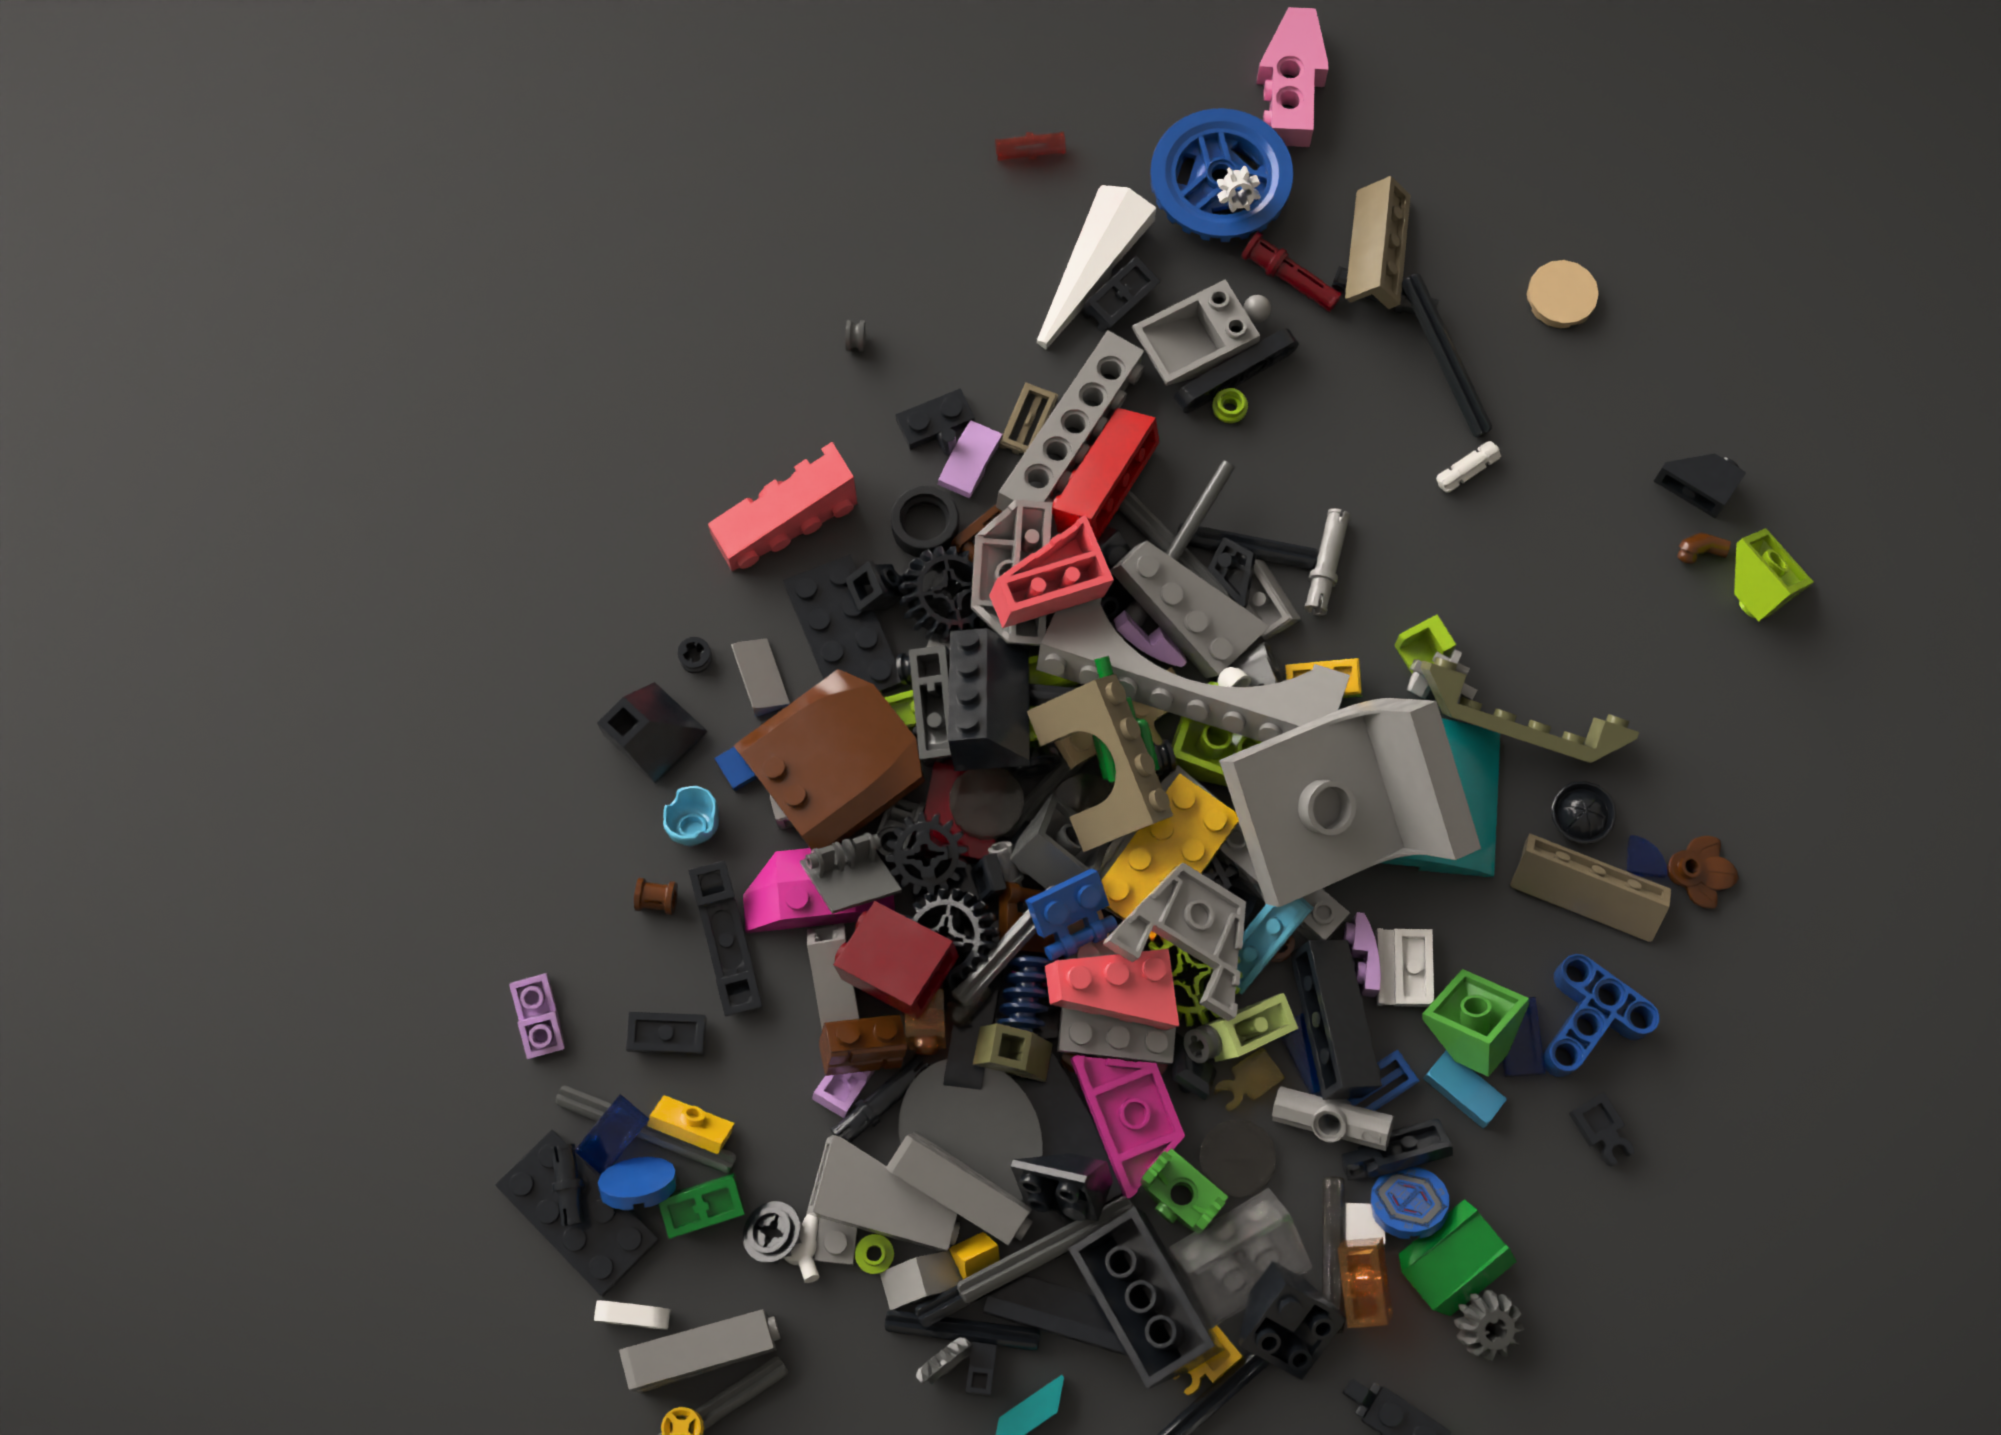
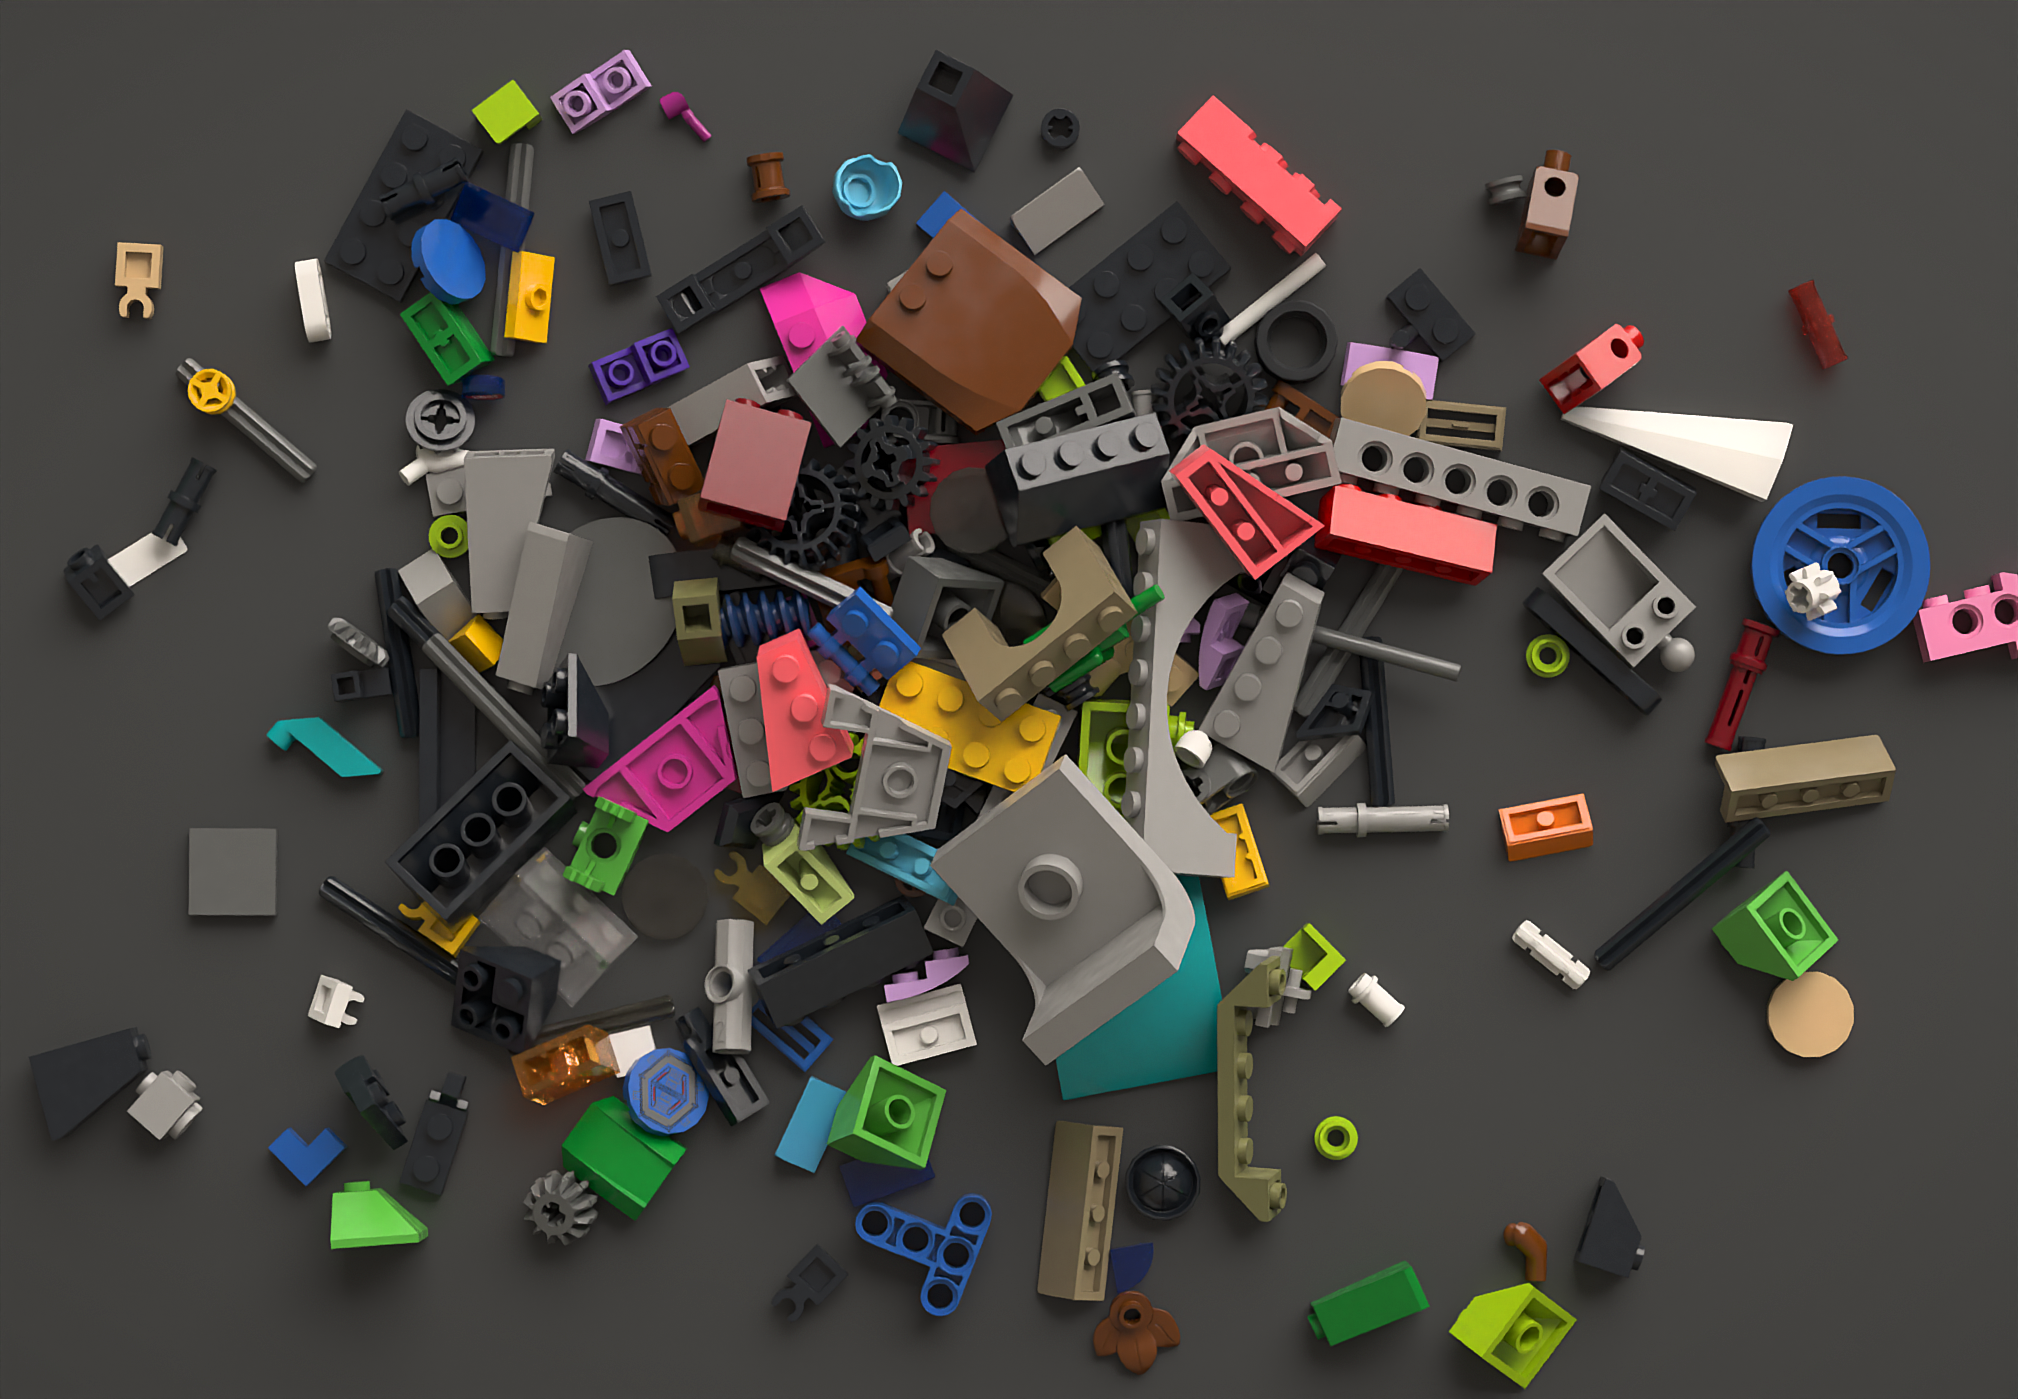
camera: 70 degrees right, 15 degrees up
(527, 1096) = (506, 112): none -> lime panel
(569, 954) = (674, 105): none -> magenta hand
(698, 1350) = (295, 383): light grey slope -> none
(755, 1186) = (483, 387): none -> clear blue tile
(779, 1050) = (638, 366): none -> dark purple slope
(882, 303) = (1548, 207): none -> reddish brown torso
(882, 528) = (1272, 298): none -> white bar
(989, 462) = (1385, 397): none -> tan tile
(1010, 292) = (1602, 361): none -> torso
(1365, 444) = (1546, 827): none -> orange slope
(1472, 606) = (1375, 999): none -> white pin
(1492, 298) = (1776, 930): none -> bright green slope
(1582, 660) = (1345, 1148): none -> lime plate
(1723, 673) = (1368, 1304): none -> green slope

